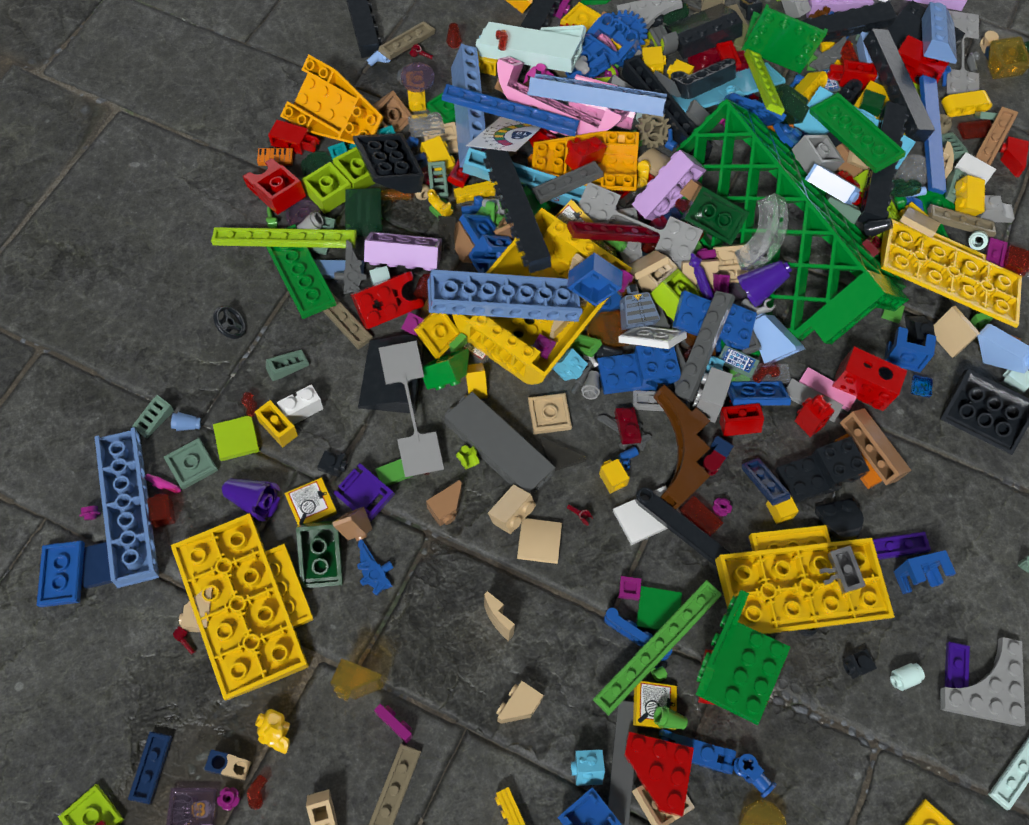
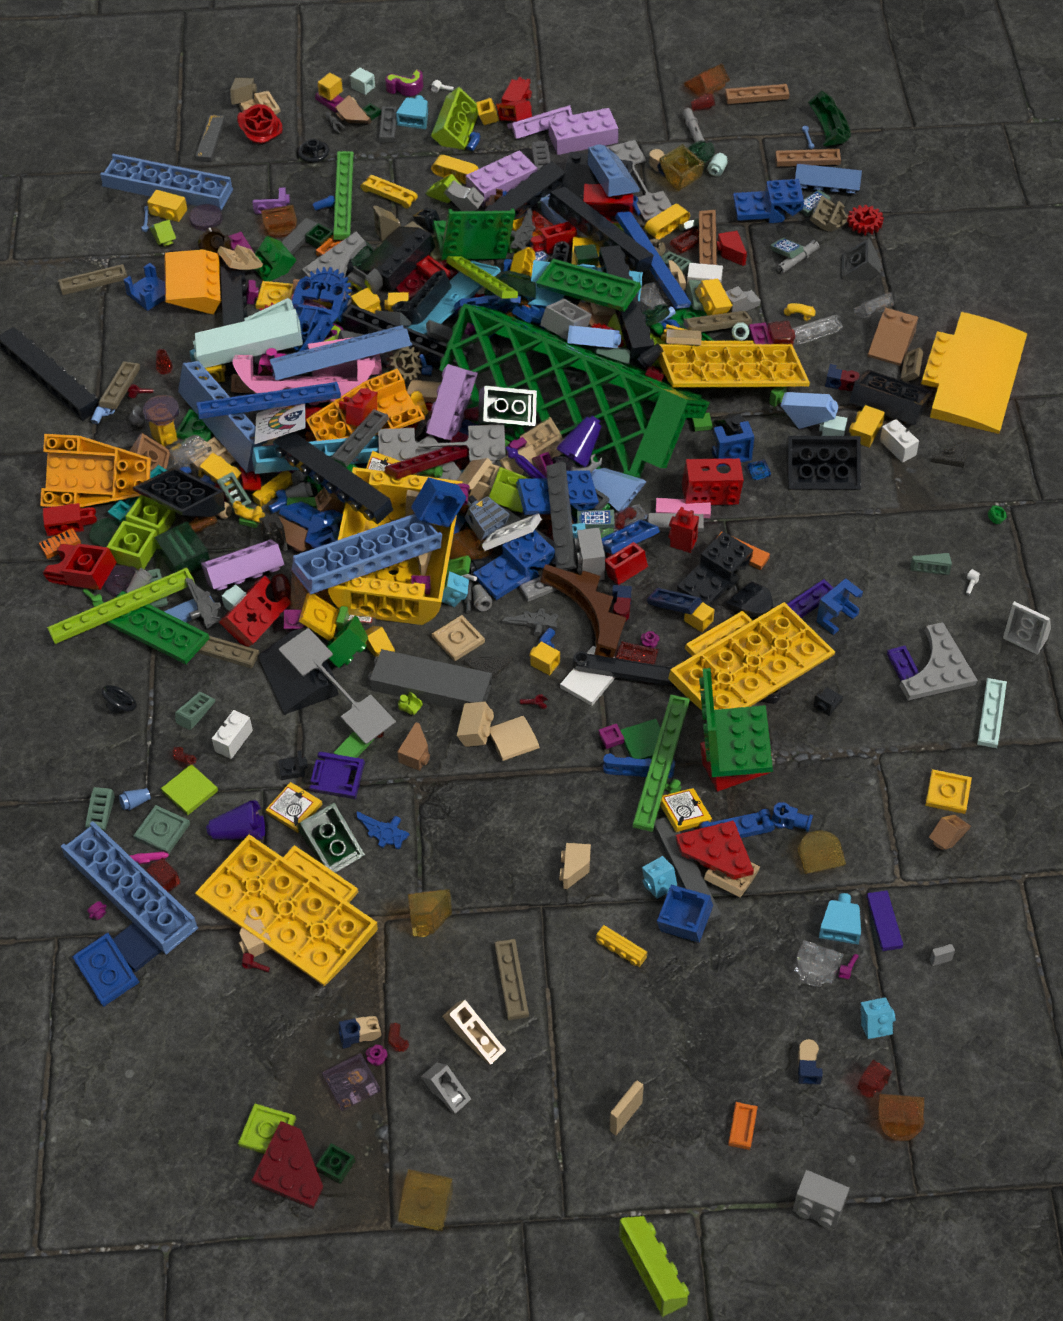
camera: 25 degrees left, 10 degrees down
(150, 768) = (292, 1069): dark blue tile -> none
(272, 730) = (382, 985): yellow head -> none
(276, 423) = (221, 757): yellow brick -> none
(353, 524) = (347, 799): medium nougat slope -> none
(401, 728) = (479, 930): magenta plate -> none
(492, 208) = (300, 493): bright green hand -> none
(495, 613) = (516, 808): tan slope -> none
(502, 36) = (222, 340): clear red arm -> none
(582, 65) = (308, 333): light grey arm -> none
(627, 425) = (532, 614): dark red plate -> none
(668, 718) = (700, 810): bright green cone -> none
(690, 189) = (472, 396): medium nougat slope -> none
(768, 235) = (565, 400): clear window -> none
(845, 570) = (776, 631): flat silver brick -> none
(875, 446) = (748, 532): medium nougat brick -> none
(907, 676) = (869, 690): light aqua brick -> none
(954, 331) = (761, 412): tan tile -> none
(972, 56) = (651, 184): dark grey arm -> none

